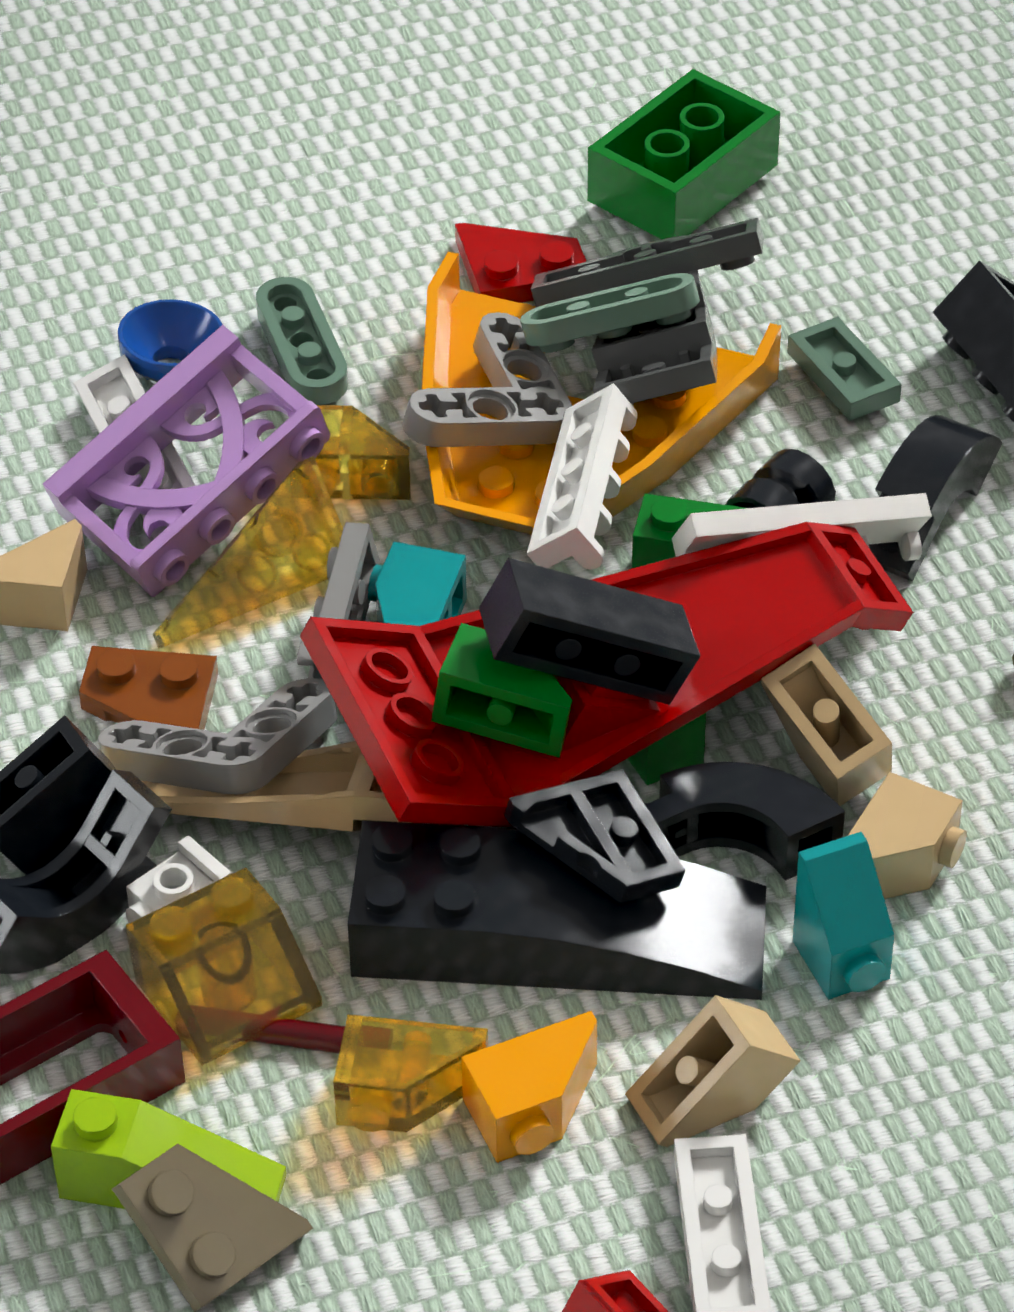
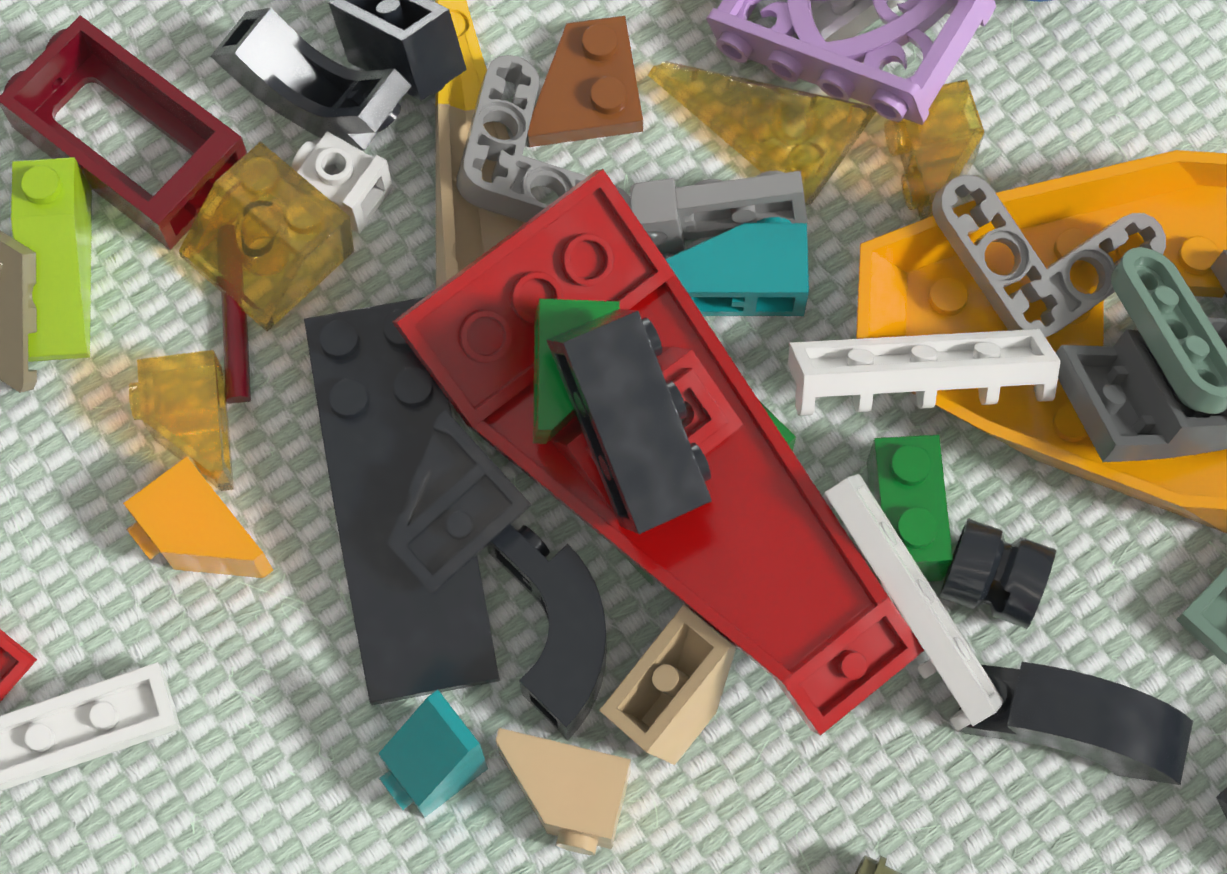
camera: 75 degrees right, 25 degrees up
(302, 339) = (1104, 47): sand green plate -> none
(712, 1071) = (246, 681): tan slope -> none

